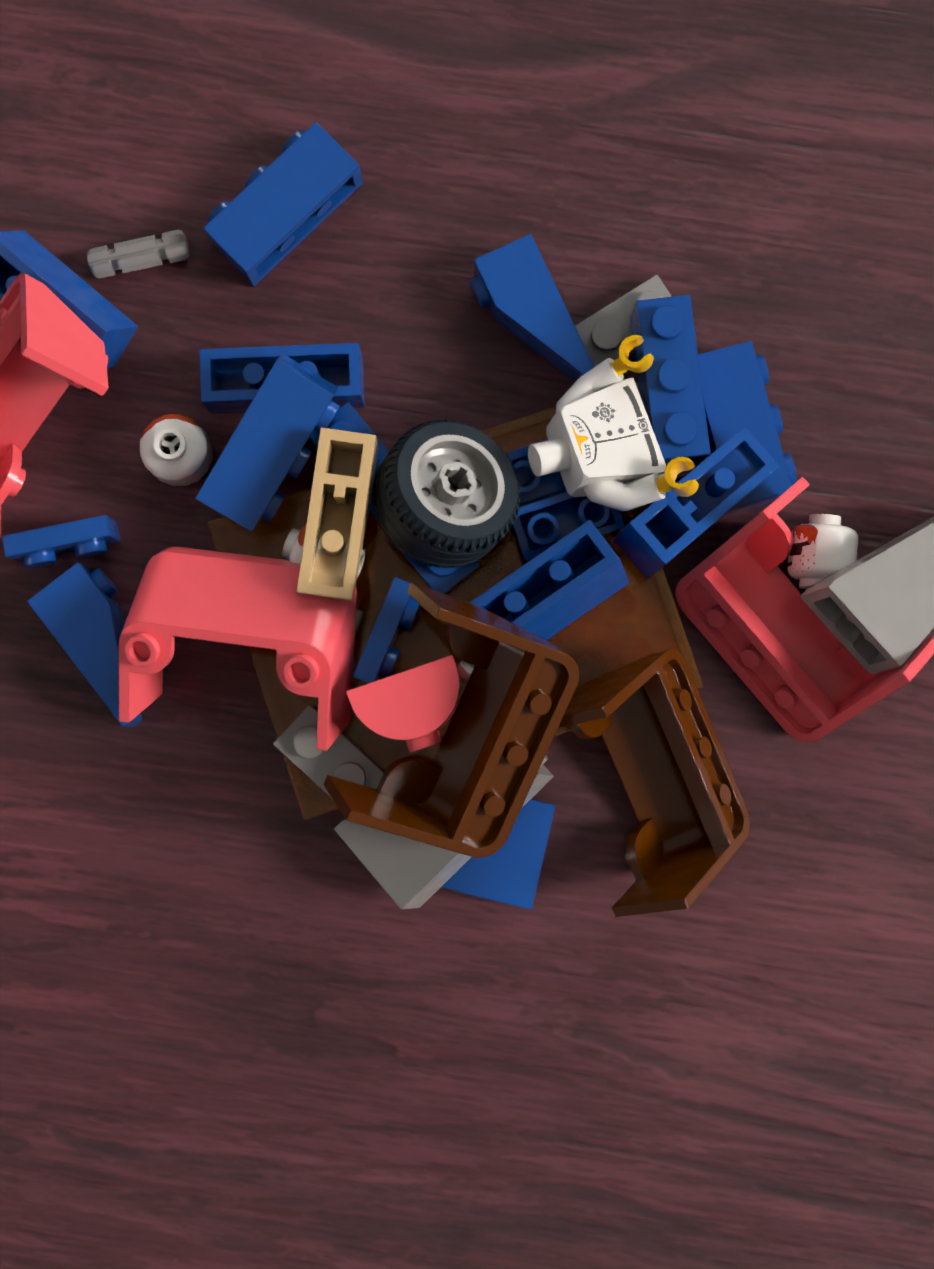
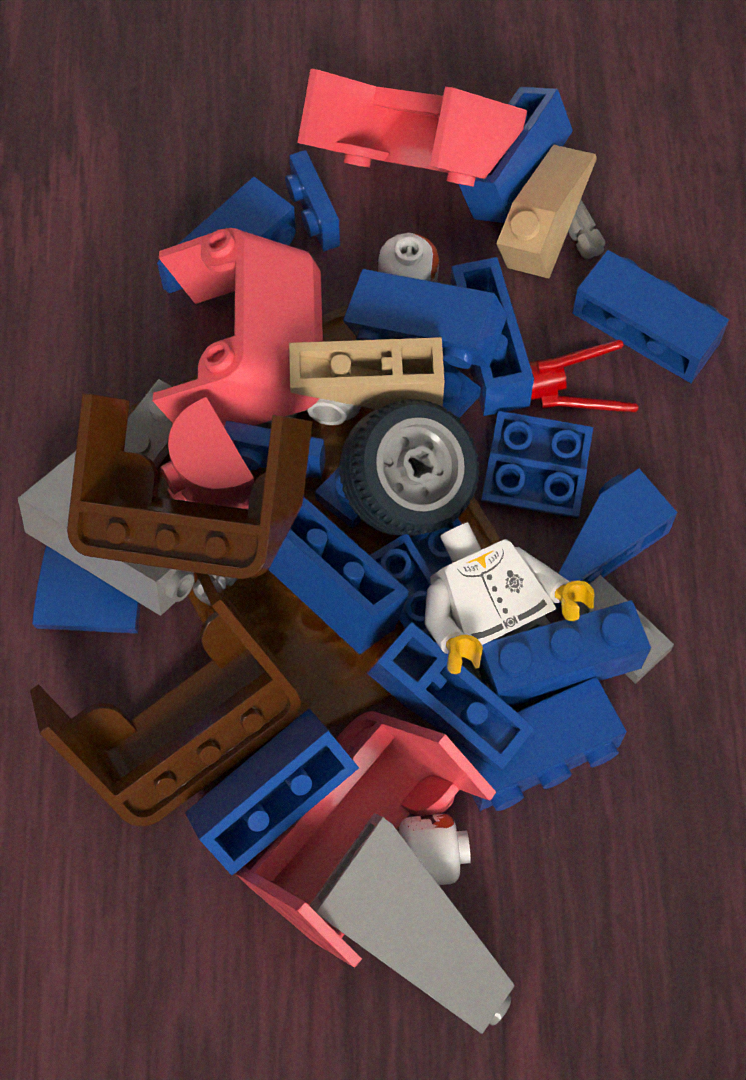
camera: 75 degrees right, 20 degrees down
(128, 280) = (545, 211): none -> tan slope
(337, 324) = (551, 377): none -> red plant
(434, 363) = (537, 464): none -> blue slope
(751, 693) = (270, 791): none -> blue brick

